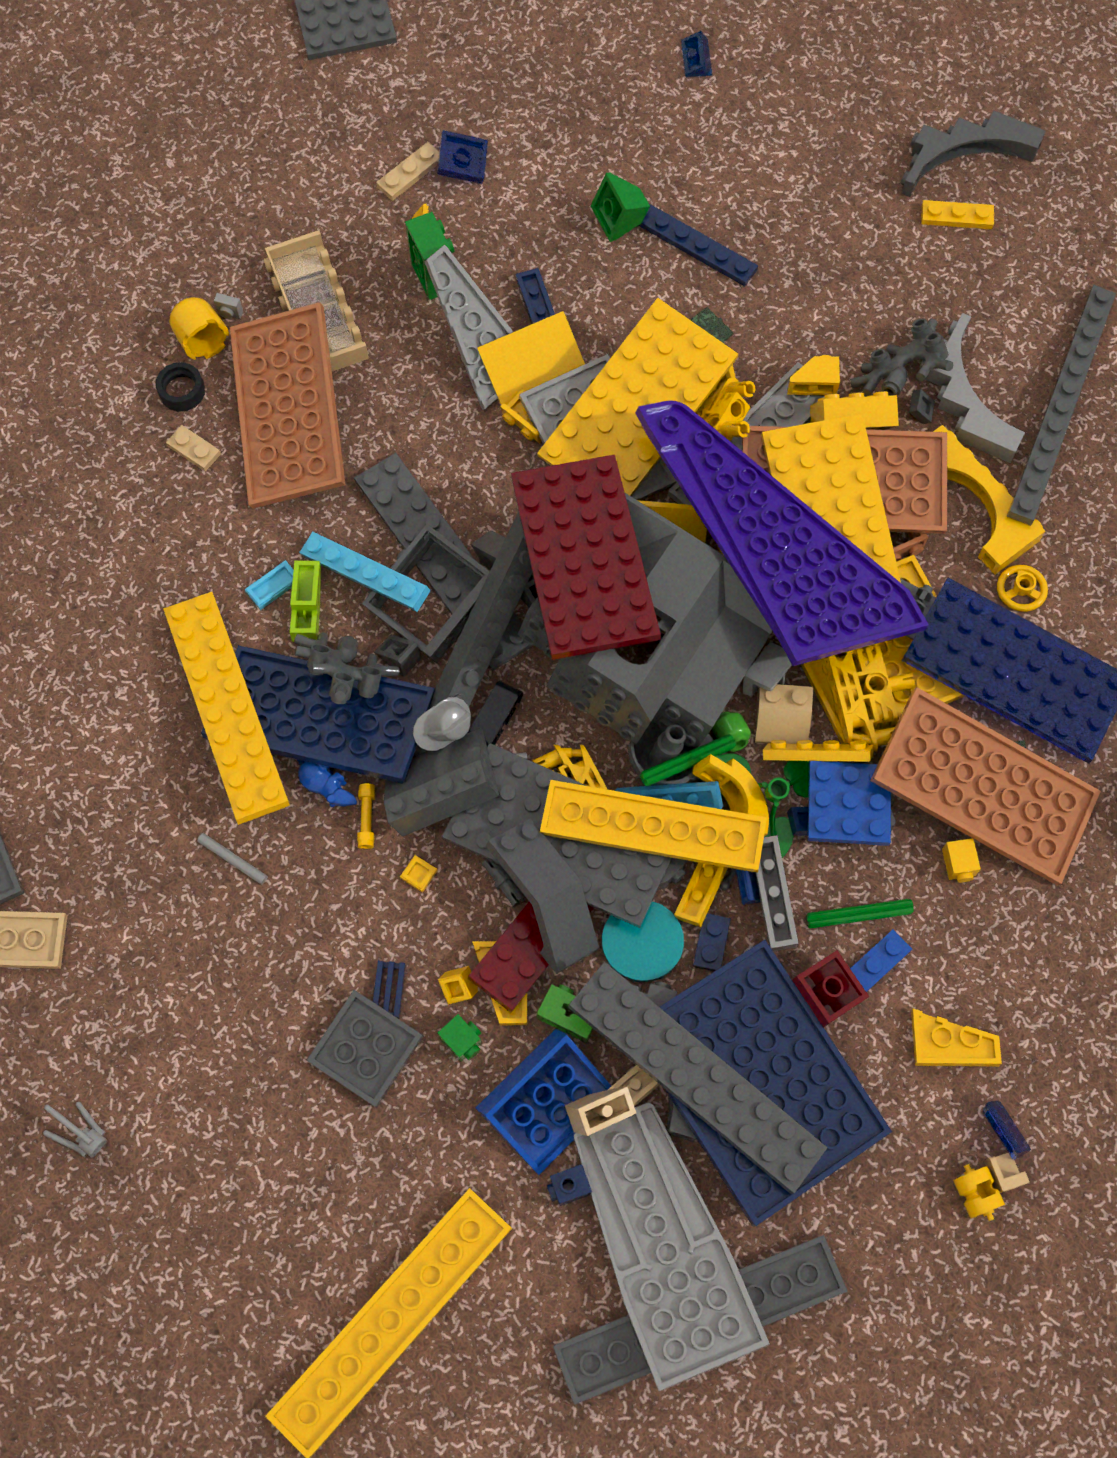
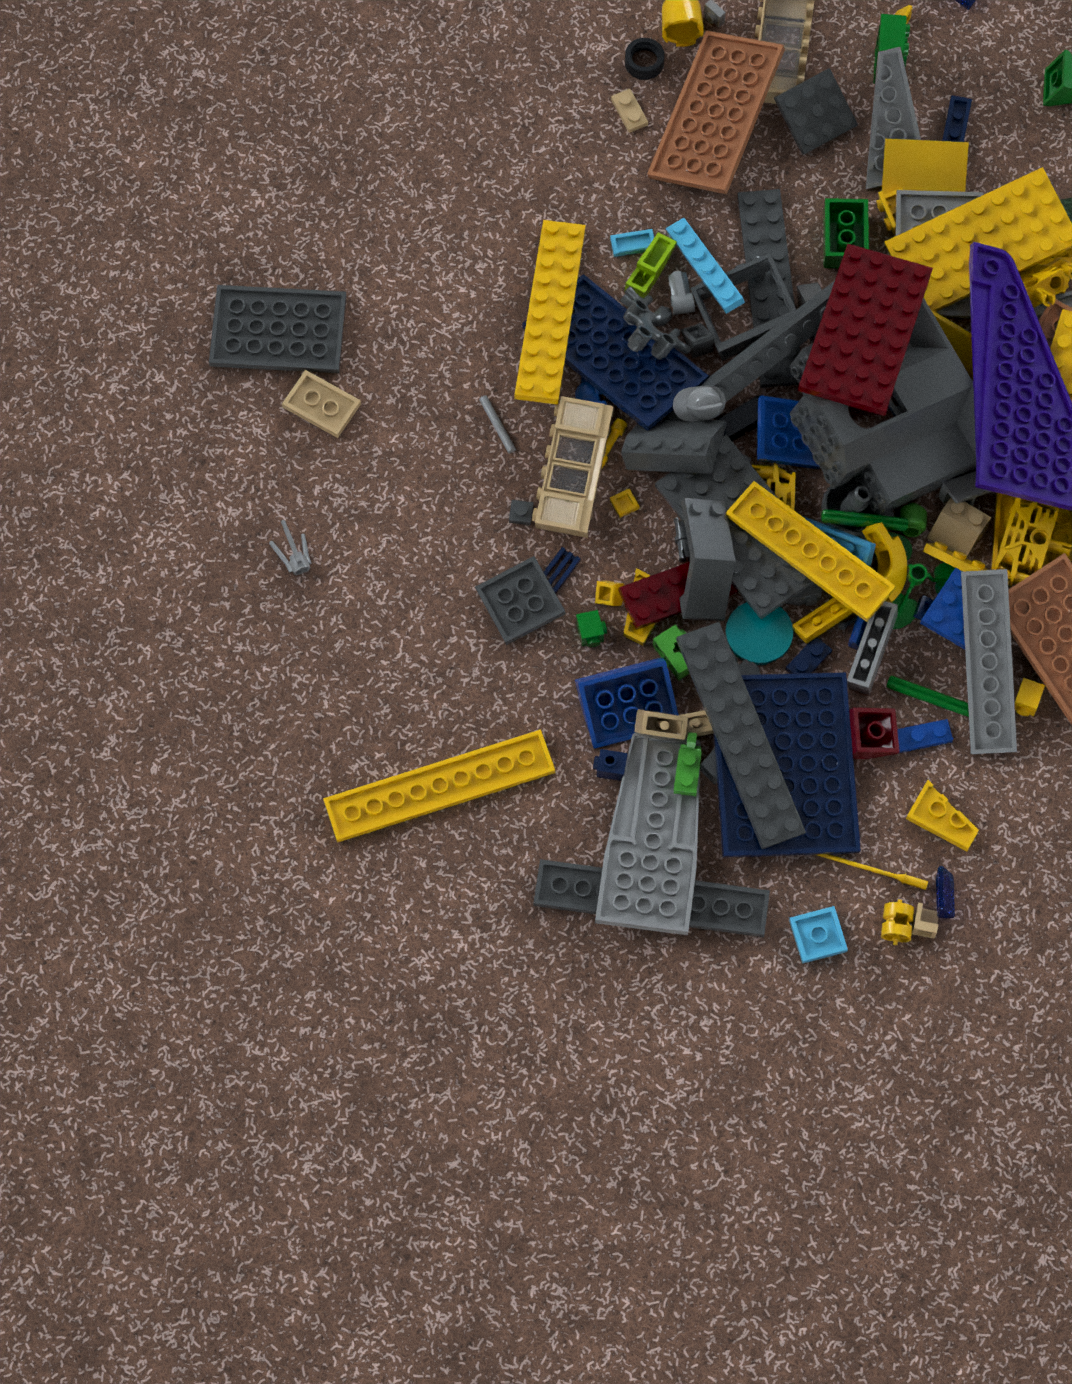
camera: 30 degrees right, 0 degrees up
(311, 944) = (521, 512): none -> dark grey plate
(342, 865) = (572, 466): none -> tan window
(356, 617) = (681, 298): none -> light grey piece
(389, 355) = (815, 111): none -> dark grey plate
(487, 463) = (843, 224): none -> green brick
(542, 714) = (777, 436): none -> blue plate
(657, 1142) = (688, 767): none -> bright green hinge
(903, 1255) = (818, 934): none -> medium azure plate
(907, 846) = (988, 661): none -> light grey plate
(953, 1135) = (903, 878): none -> yellow piece

